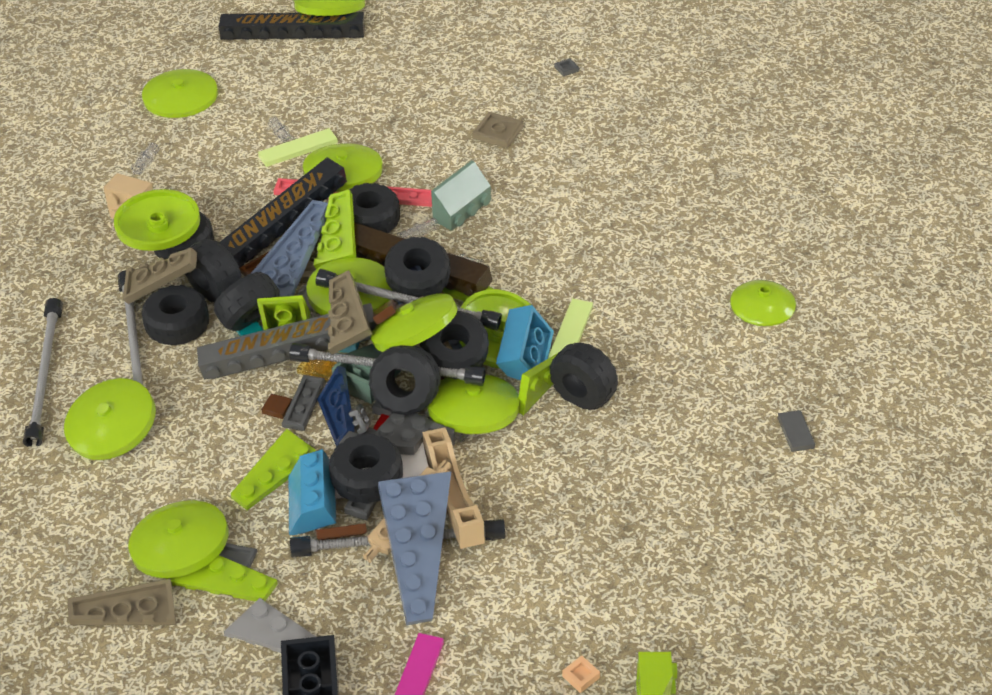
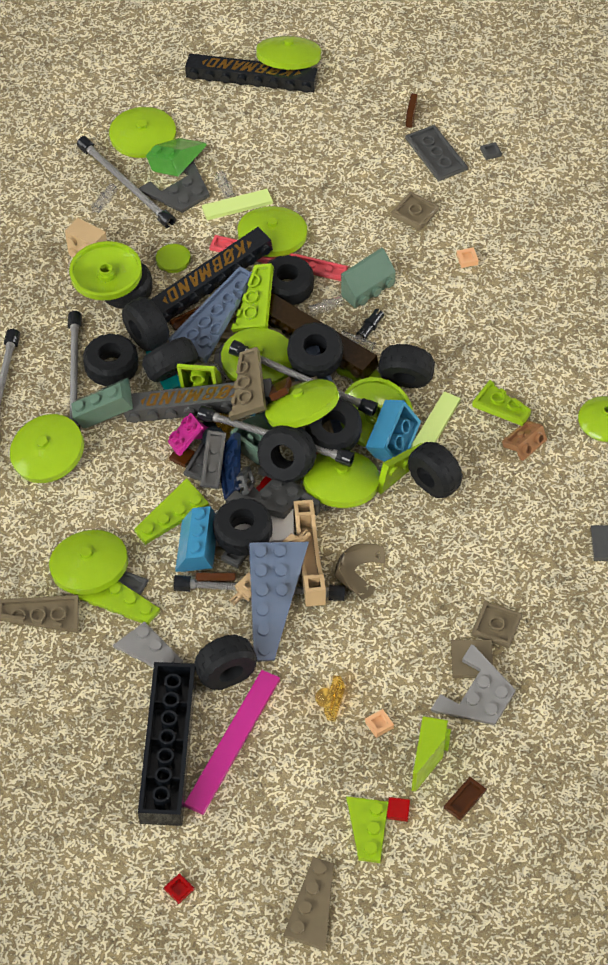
camera: 10 degrees right, 10 degrees up
(153, 276) = (95, 323): dark tan wing -> none
(172, 361) = (103, 404): none -> sand green slope
(216, 167) = (87, 146): none -> light grey hose
(218, 110) = (174, 155): none -> bright green slope
(233, 145) = (183, 193): none -> dark grey wing
(233, 206) = (173, 258): none -> lime tile
(287, 372) = (189, 430): none -> dark pink plate
(315, 403) = (212, 459): none -> dark grey tile
(372, 627) = (225, 662): none -> black tyre
(473, 40) = (411, 110): none -> reddish brown tile
(473, 241) = (370, 323): none -> black pin
(508, 75) = (436, 152): none -> dark grey tile
(509, 485) = (354, 557): none -> dark tan piece
(513, 653) = (331, 698): none -> clear yellow tile
(526, 272) = (406, 365): none -> black tyre
(566, 166) = (467, 257): none -> light nougat plate
(638, 303) = (501, 405): none -> lime wing
(677, 581) = (459, 649): none -> dark tan tile
(678, 334) = (525, 439): none -> medium nougat bracket
(696, 537) = (496, 624): none -> dark tan tile
(705, 623) = (486, 696): none -> light grey wing

